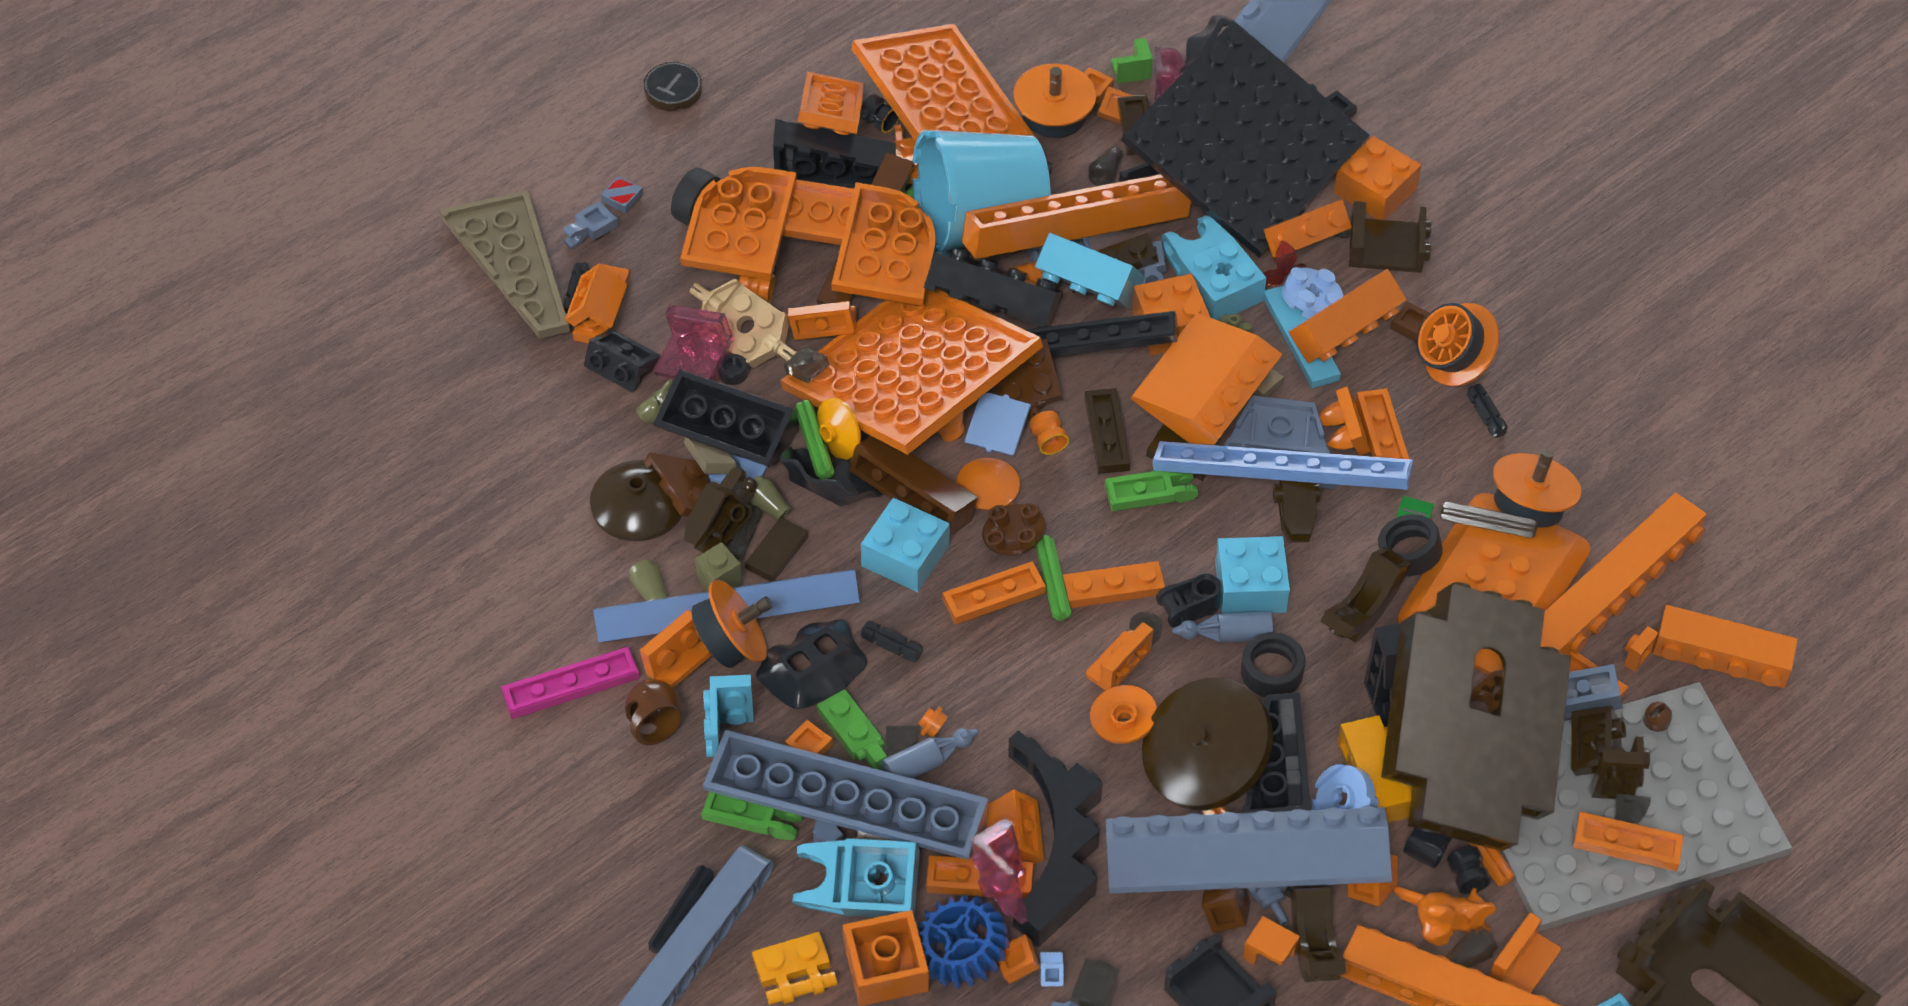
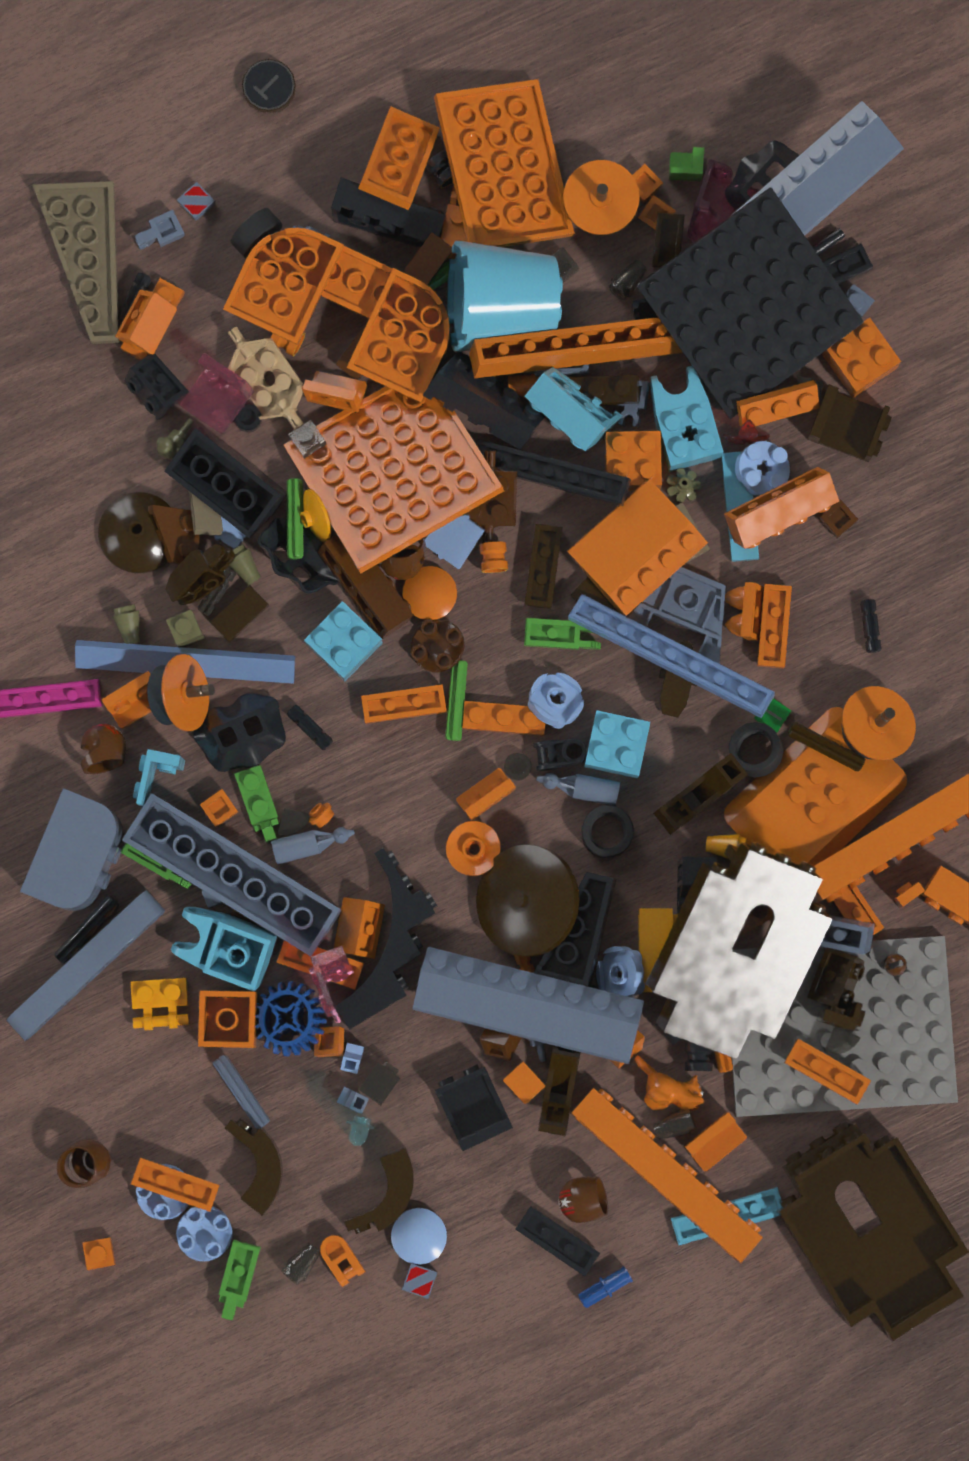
camera: 15 degrees right, 30 degrees up
(647, 821) = (75, 853): none -> sand blue brick
(949, 453) = (406, 562): none -> reddish brown helmet
(1166, 547) = (556, 714): none -> light blue plate
(1457, 342) = (865, 562): orange piece -> none

